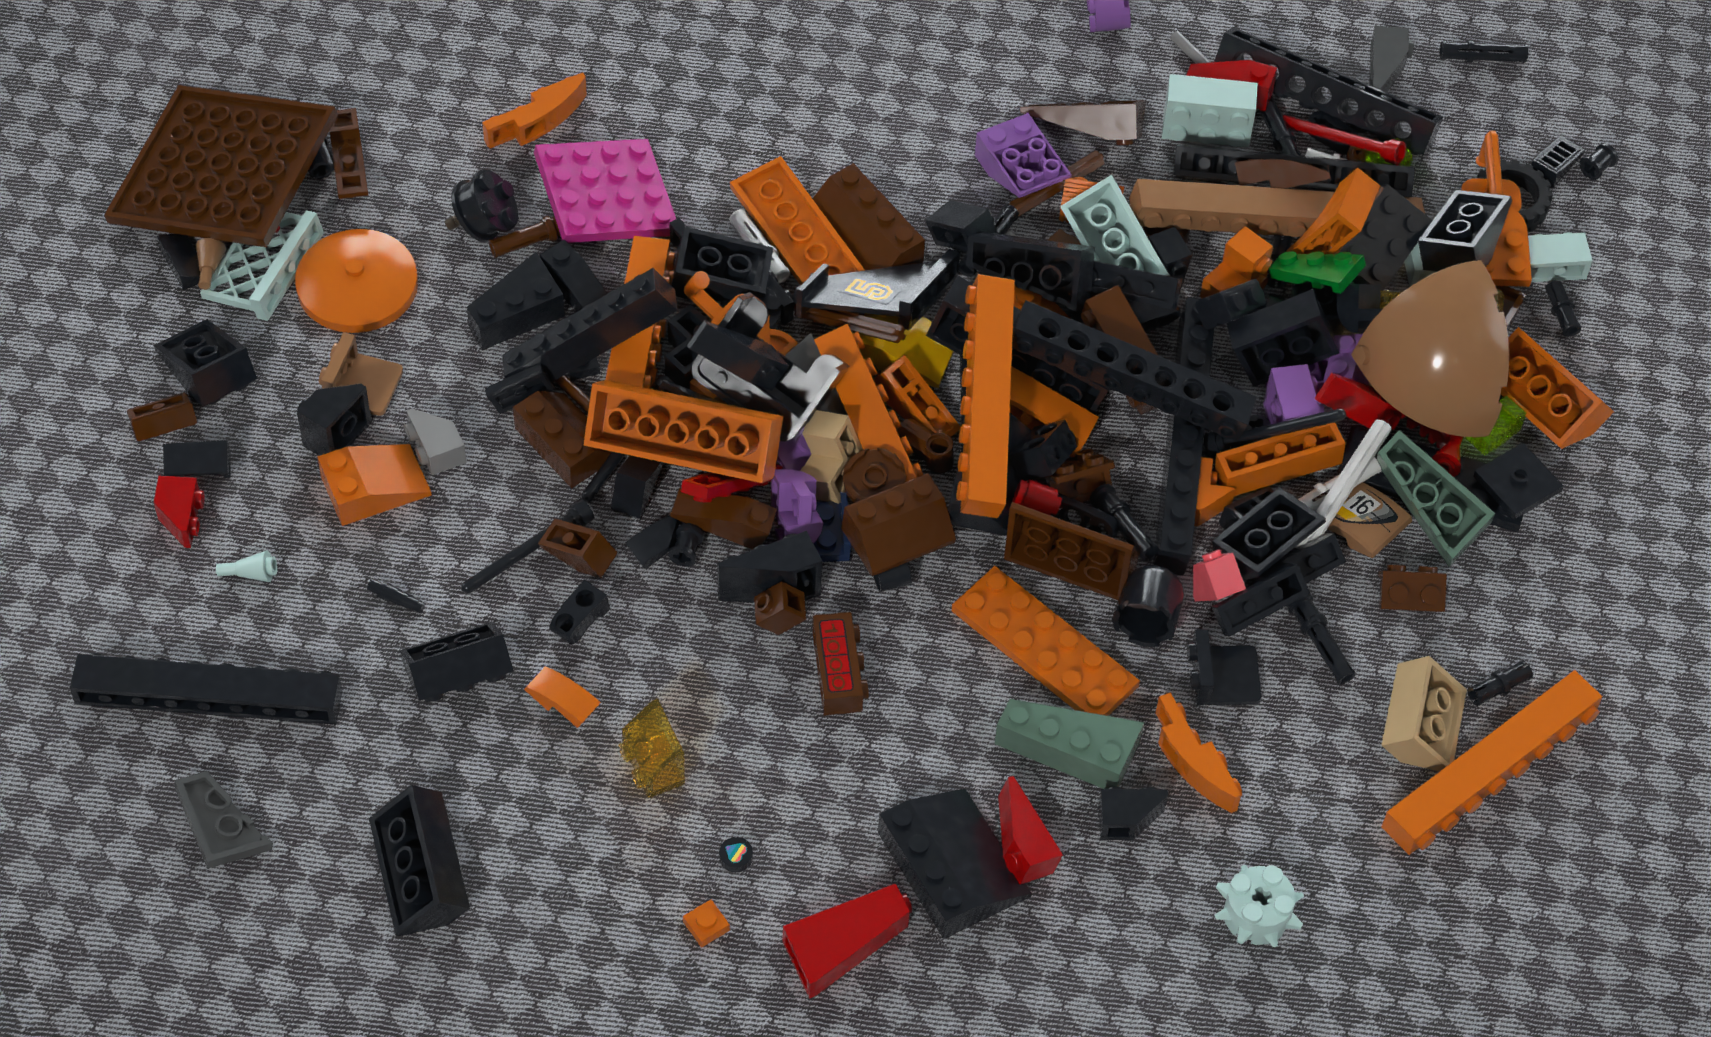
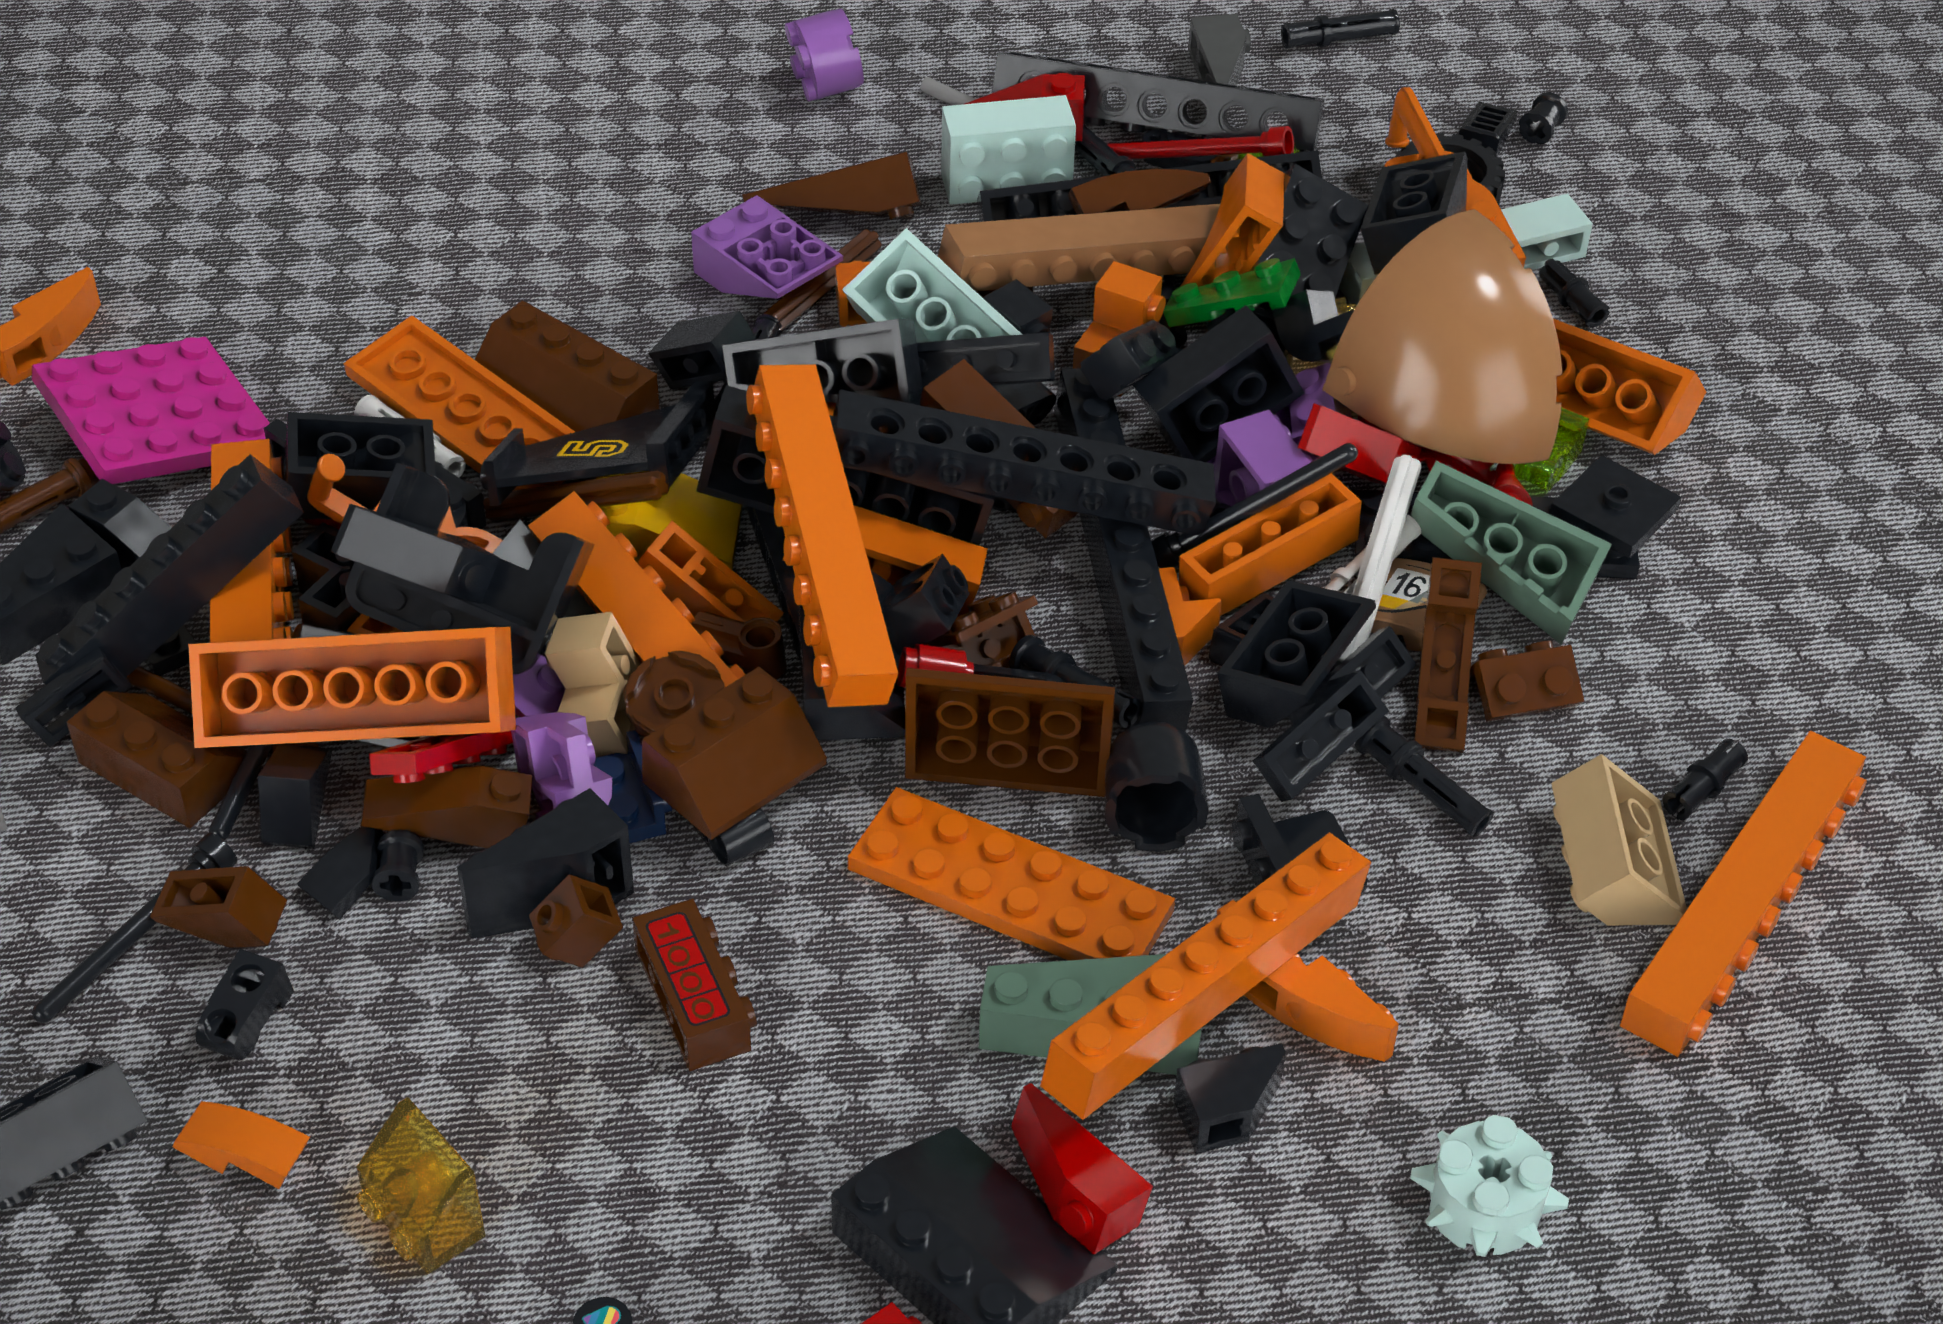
camera: 15 degrees left, 10 degrees down
(1133, 738) = (1203, 976): none -> orange brick
(1216, 577) = (1243, 719): coral slope -> none
(1365, 562) = (1447, 654): none -> reddish brown slope

